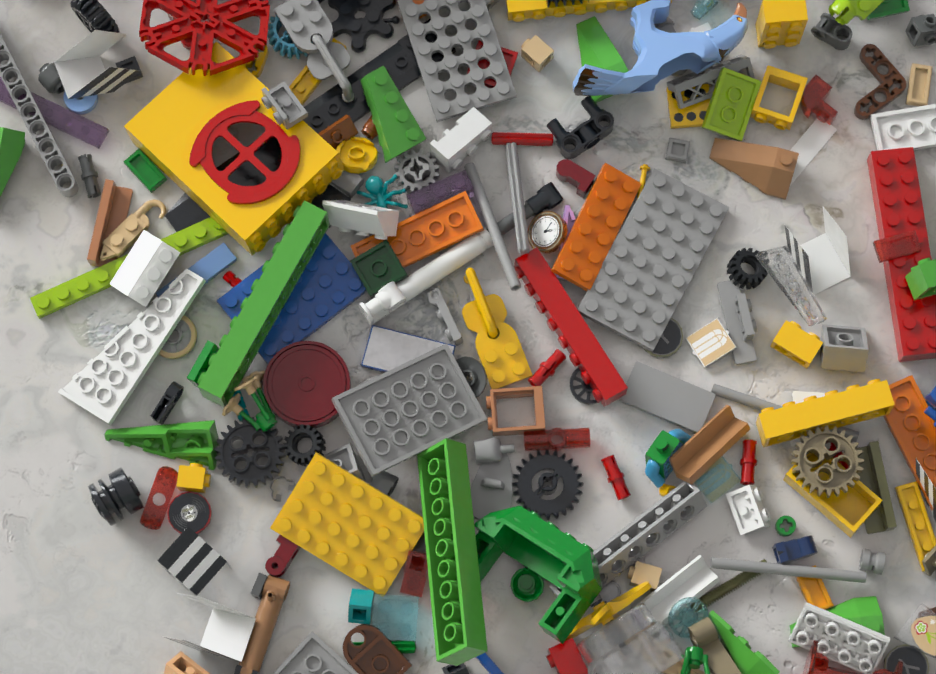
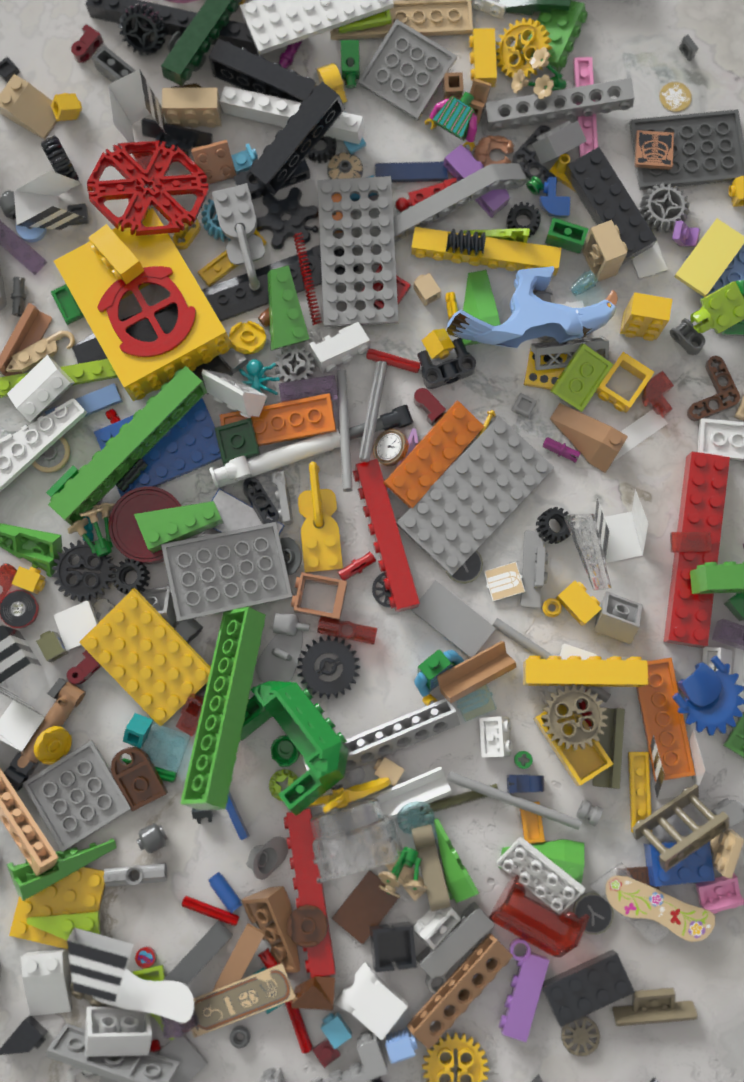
camera: 15 degrees right, 5 degrees up
(167, 402) = (26, 509): black piece -> none
(194, 101) = (115, 254): none -> yellow brick
(239, 542) = (51, 646): none -> olive brick
(258, 512) = (76, 624): none -> white tile
(272, 646) = (52, 745): none -> yellow tile
(274, 335) = (132, 475): none -> black axle
(284, 105) = (192, 278): light grey bracket -> none
(339, 131) = (238, 313): dark orange plate -> none
(341, 371) = (177, 523): none -> bright green wedge
(403, 75) = (306, 278): none -> red piece
(419, 318) = (260, 494): none -> black beam
(528, 629) = (280, 776): none -> lime gear
(566, 108) = (438, 344): none -> yellow brick
(568, 64) = (451, 304): none -> yellow axle
(615, 477) = (388, 677): red pin -> none
(731, 186) = (561, 449): none -> magenta axle
(748, 462) = (507, 695): red pin -> none
(772, 351) = (552, 601): none -> yellow plate

